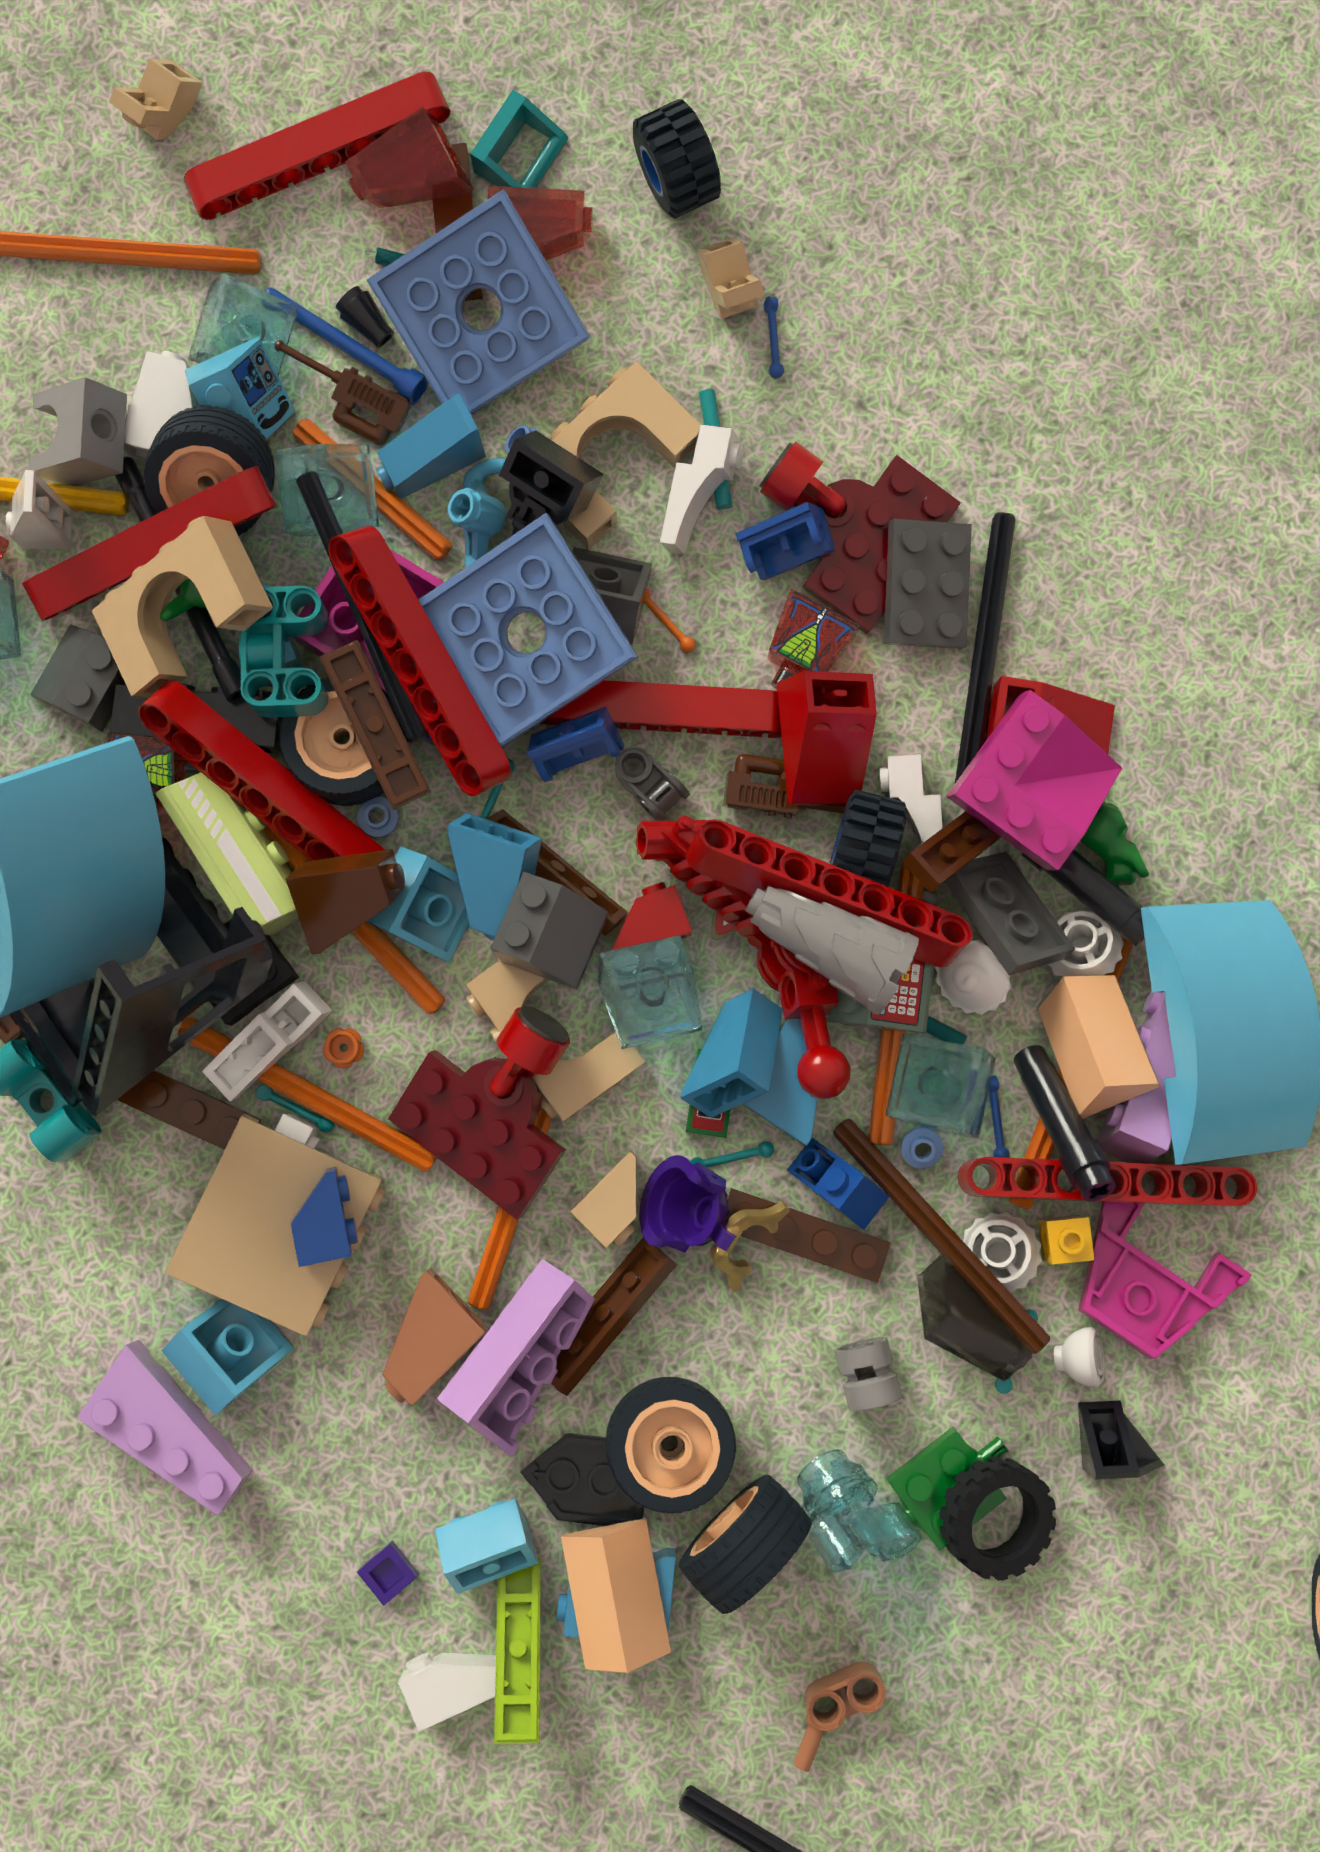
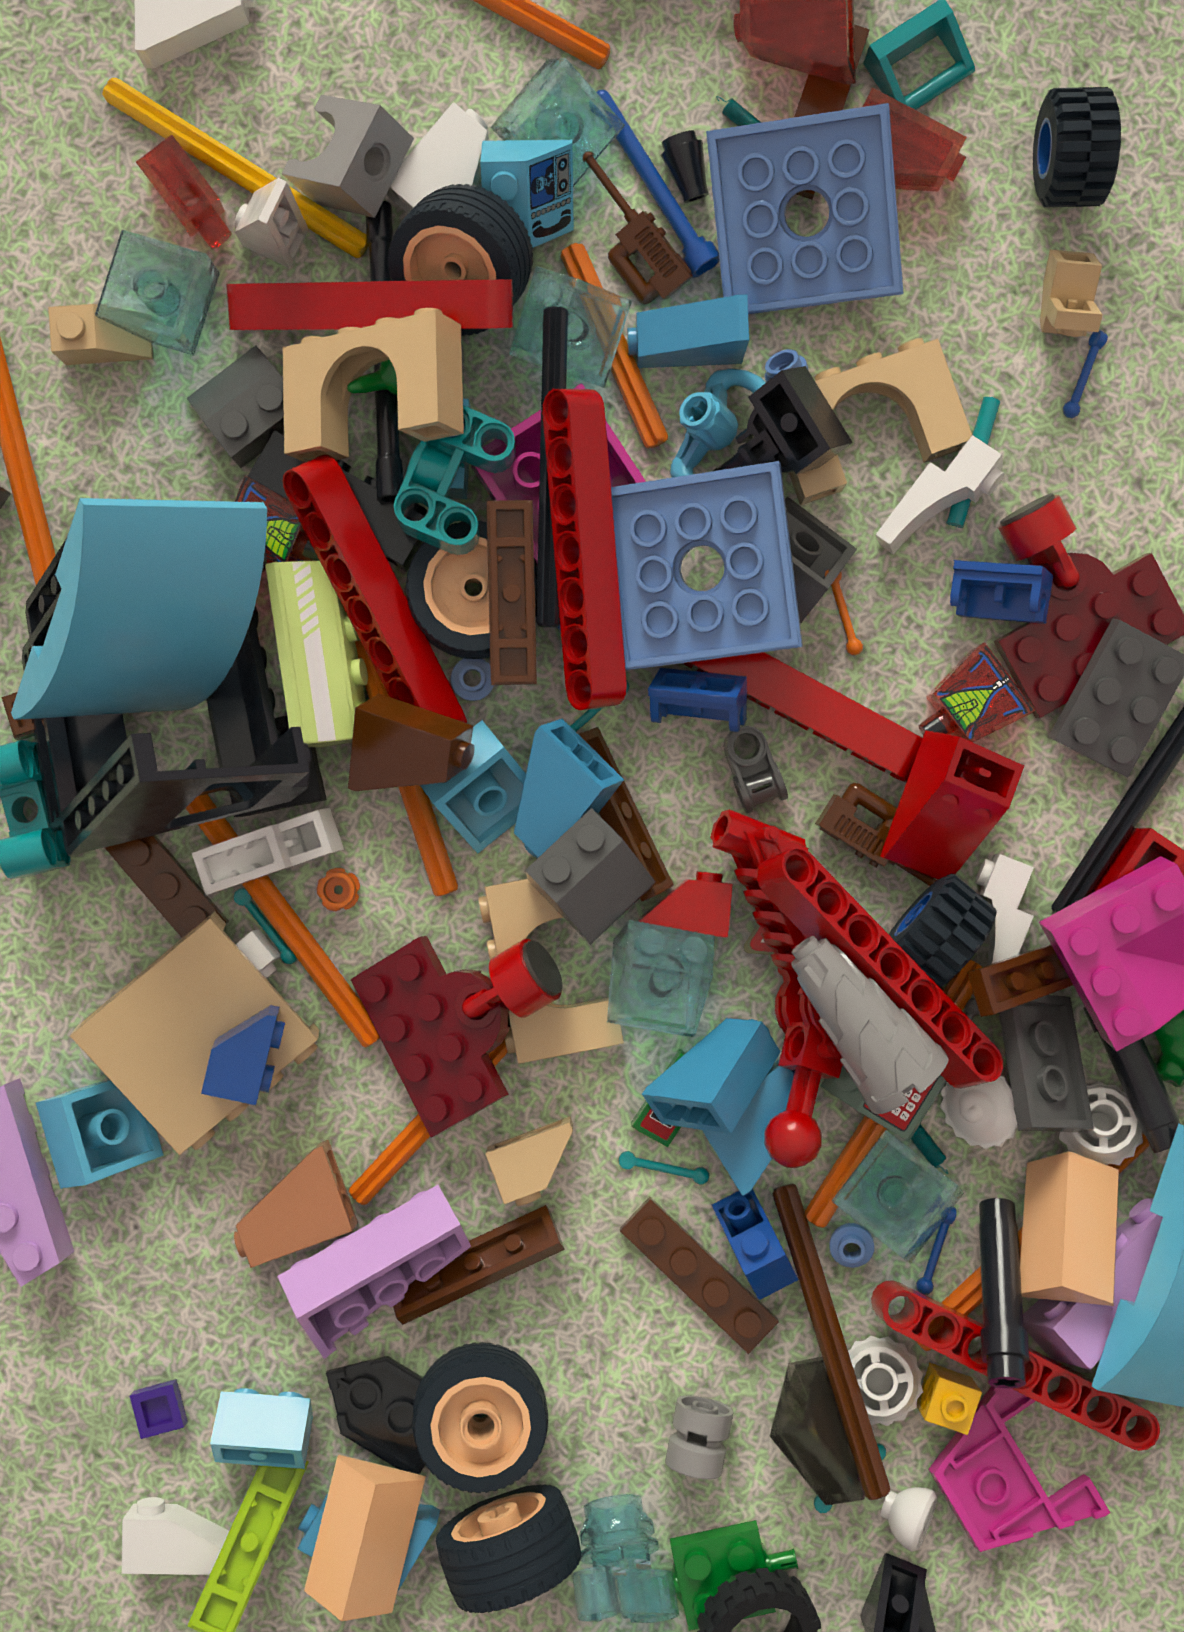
camera: 20 degrees right, 5 degrees up
(690, 1207) = (602, 1202): dark purple helmet -> none

